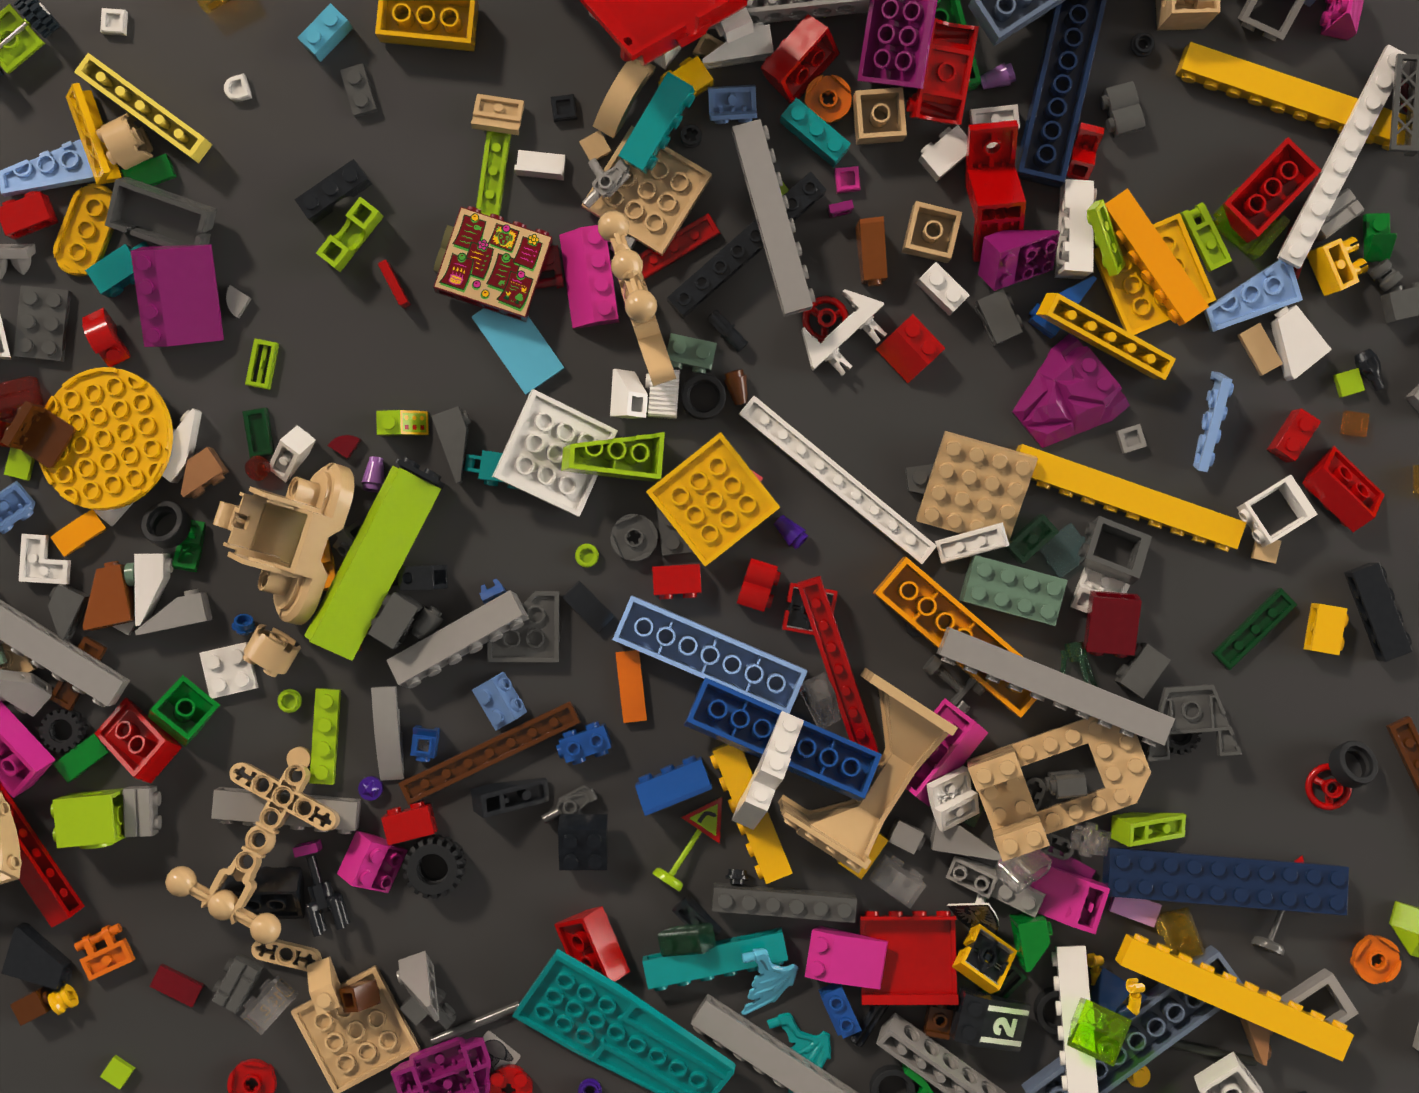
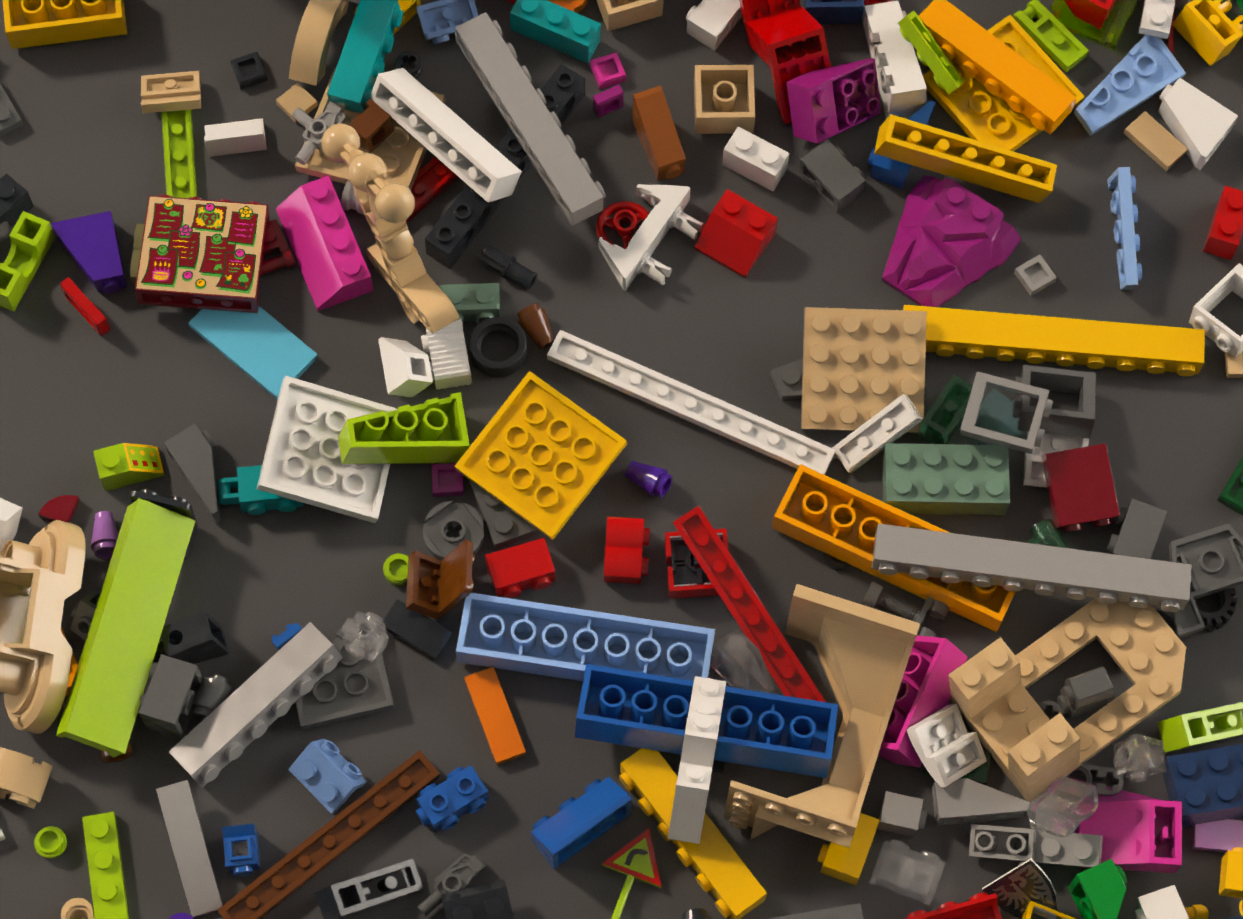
camera: 10 degrees left, 20 degrees down
(412, 237) = (94, 249): none -> dark purple slope
(555, 603) = (366, 645): none -> clear brick
(614, 578) = (438, 584): none -> reddish brown bracket
(637, 493) = (446, 480): none -> magenta tile
(646, 191) = (372, 126): none -> reddish brown brick
(702, 216) = (445, 134): none -> white brick
(1052, 546) = (974, 406): none -> light grey window

